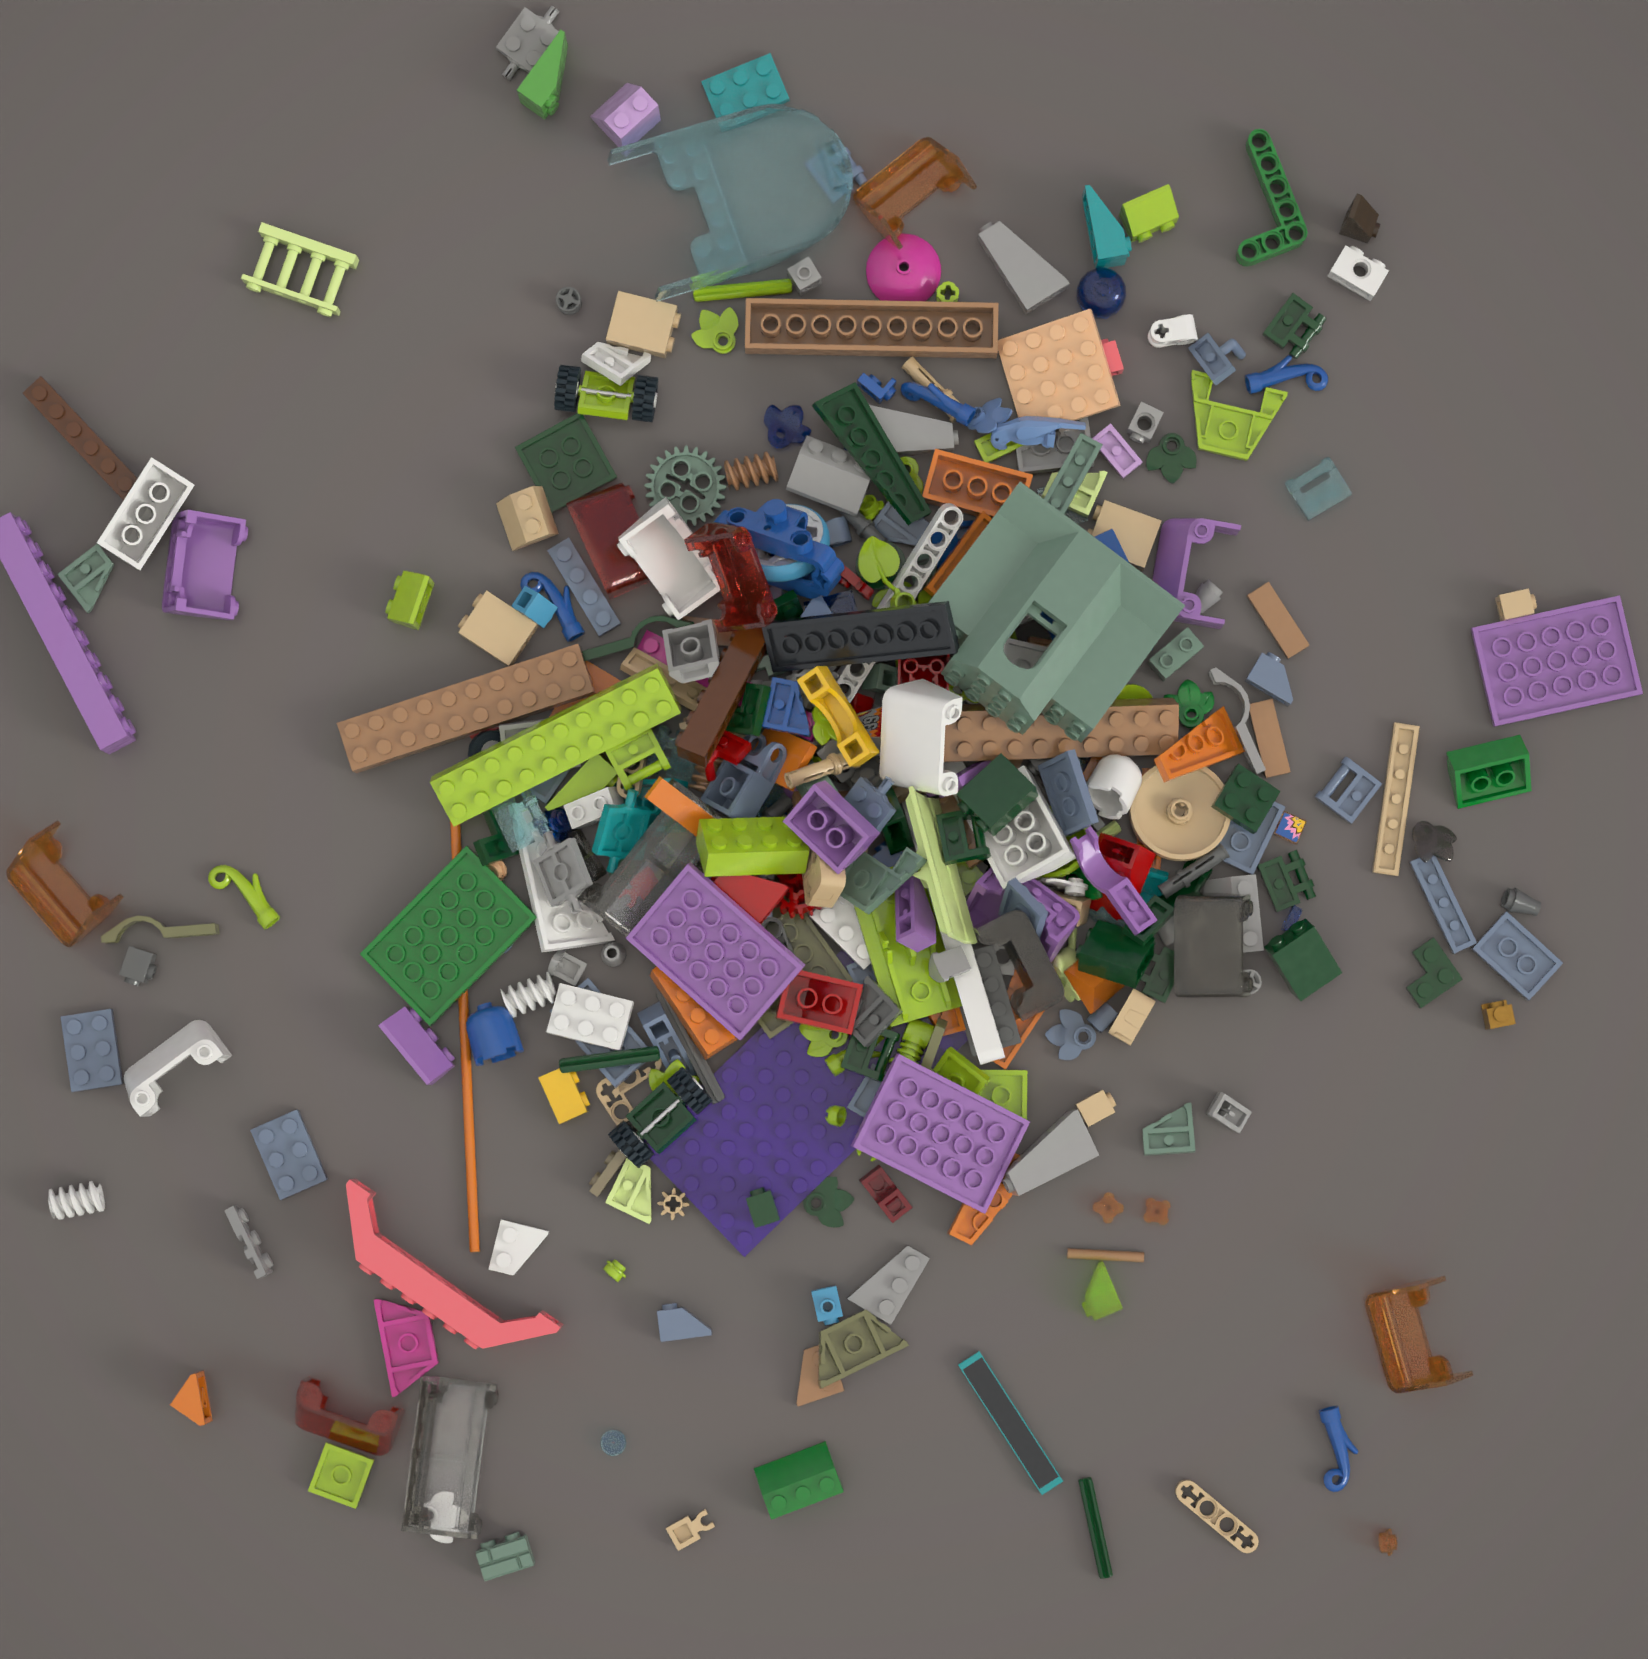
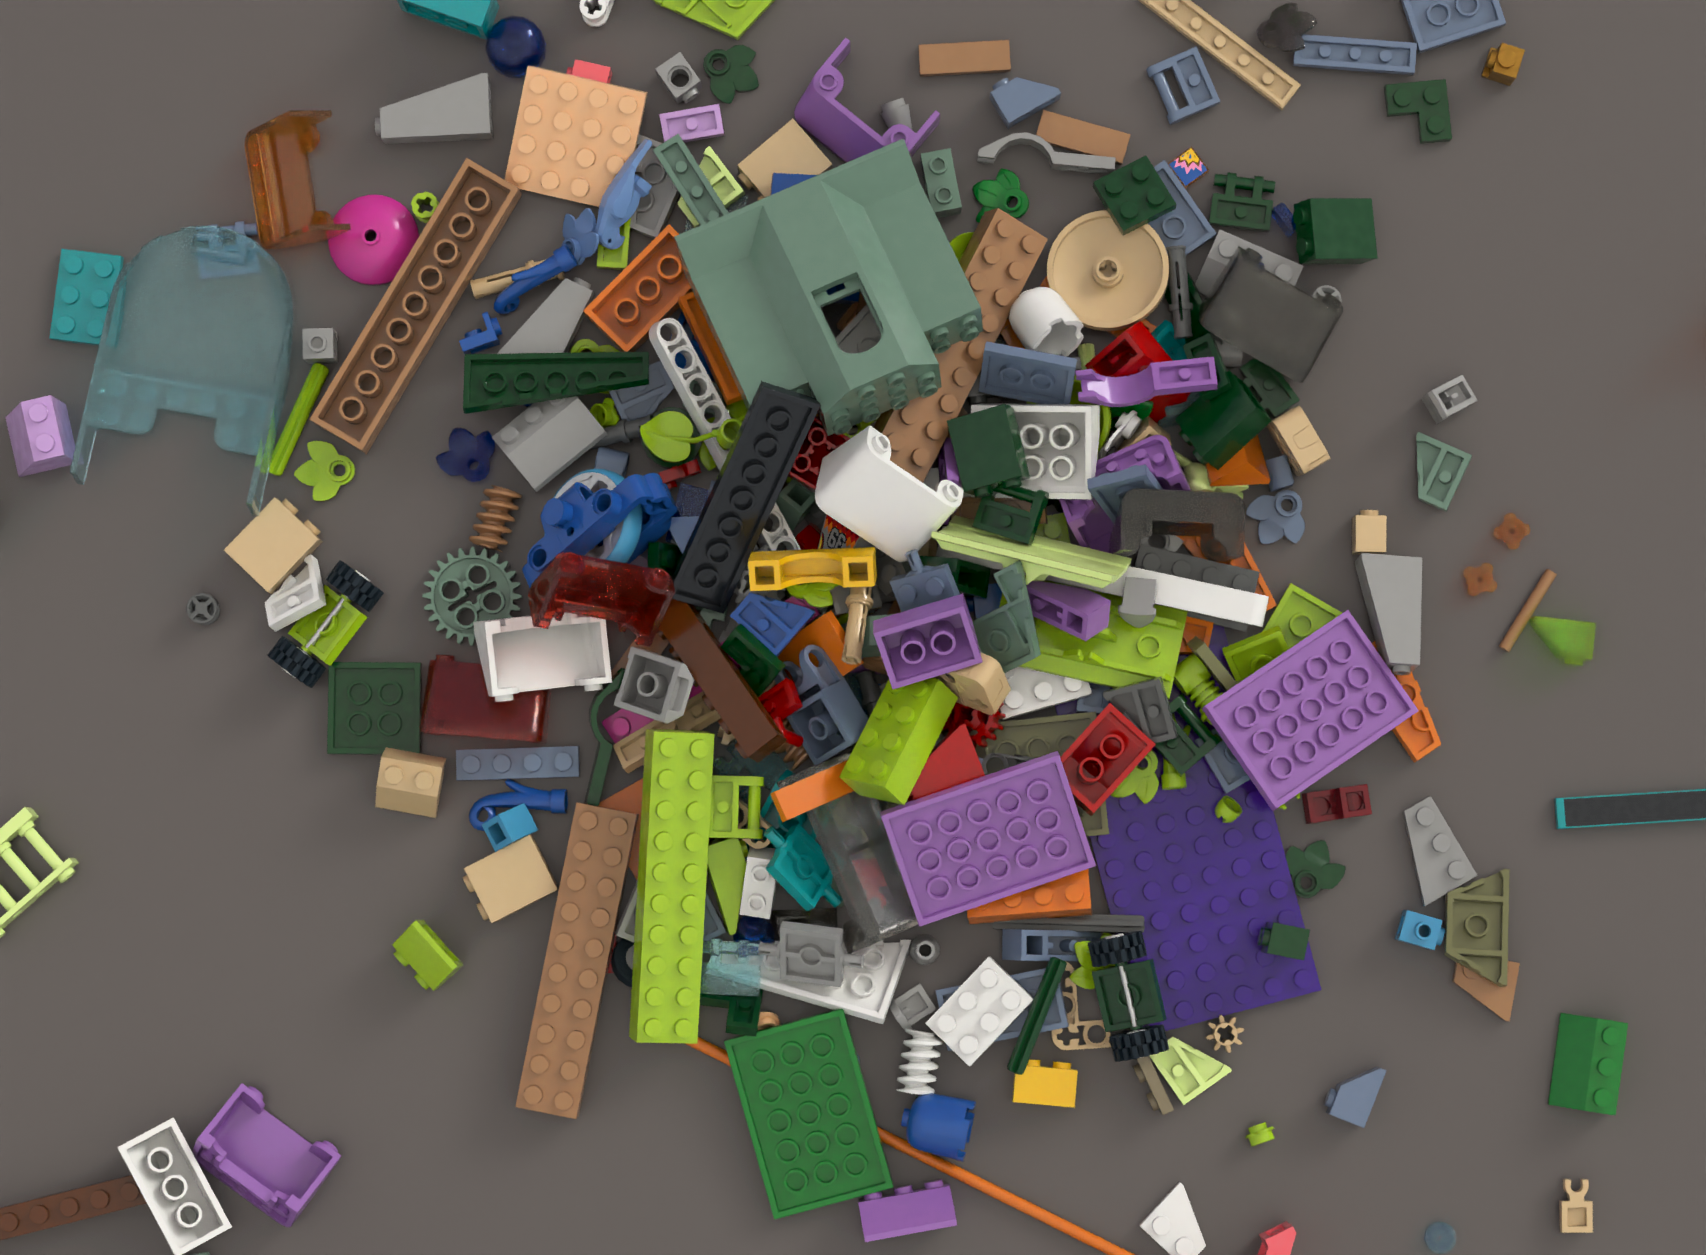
camera: 60 degrees left, 0 degrees up
(1201, 747) = (1054, 210): orange wing -> none

